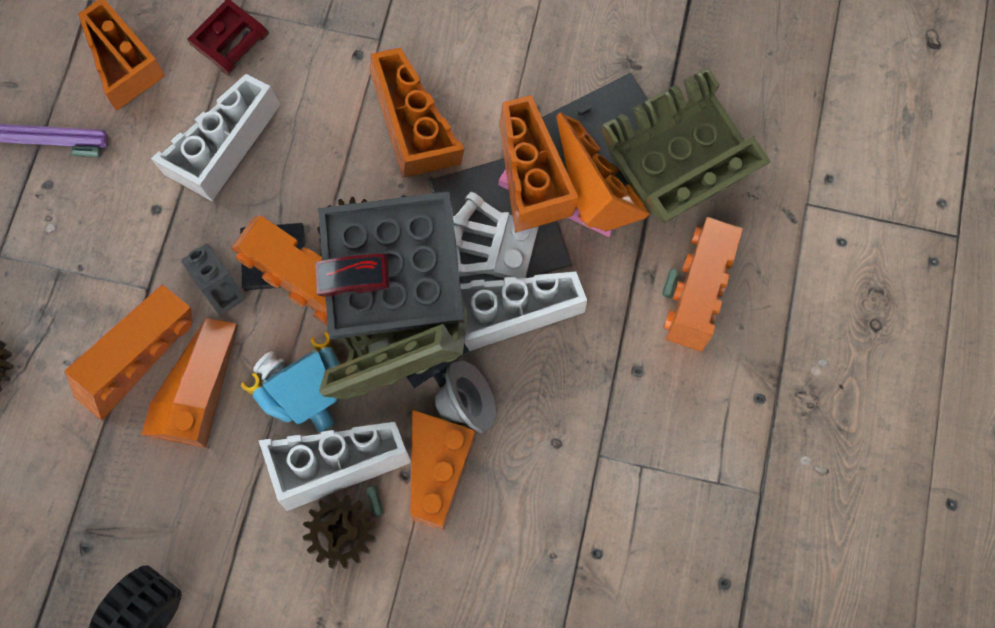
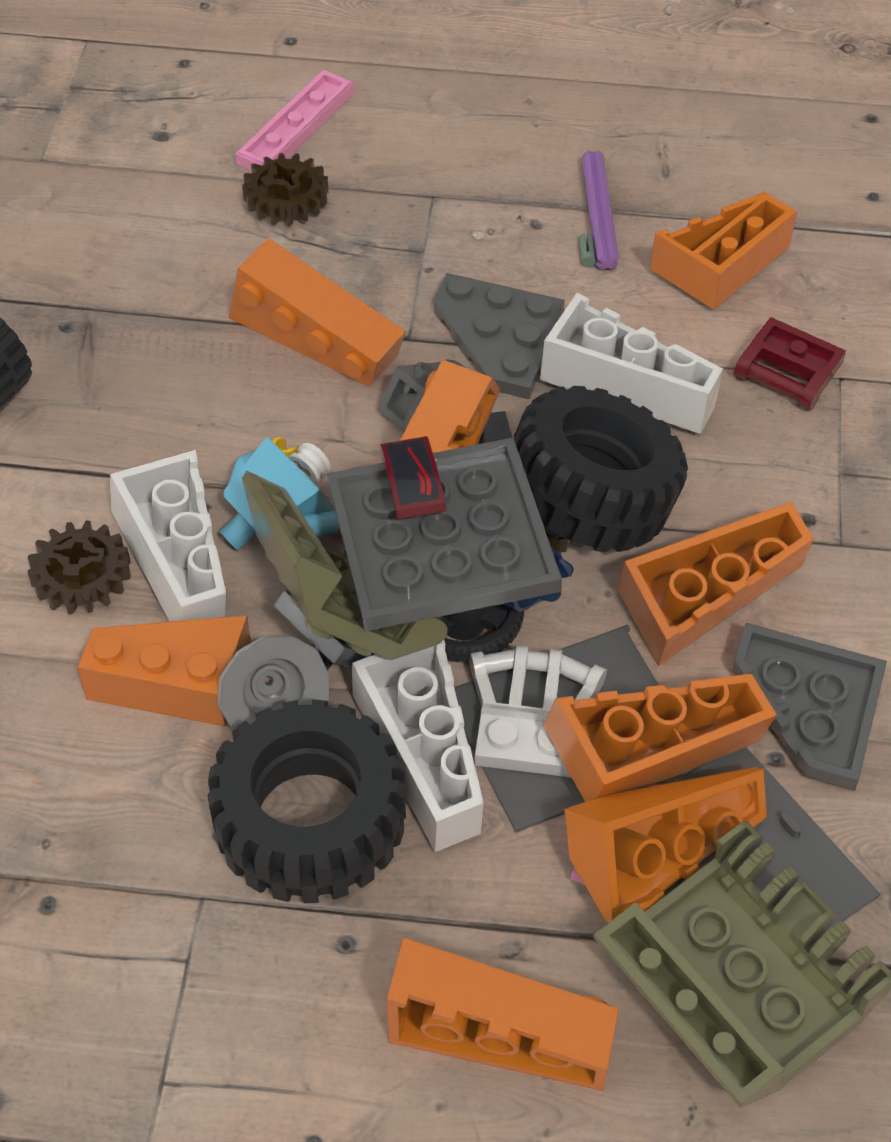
camera: 85 degrees right, 20 degrees down
(156, 223) = (499, 328): none -> dark grey plate
(189, 395) = (270, 395): orange wedge -> none
(312, 142) = (599, 467): none -> black tyre
(374, 501) = (140, 607): sand green piece -> none
(501, 73) = (820, 699): none -> dark grey plate
(553, 339) = (296, 744): none -> black tyre

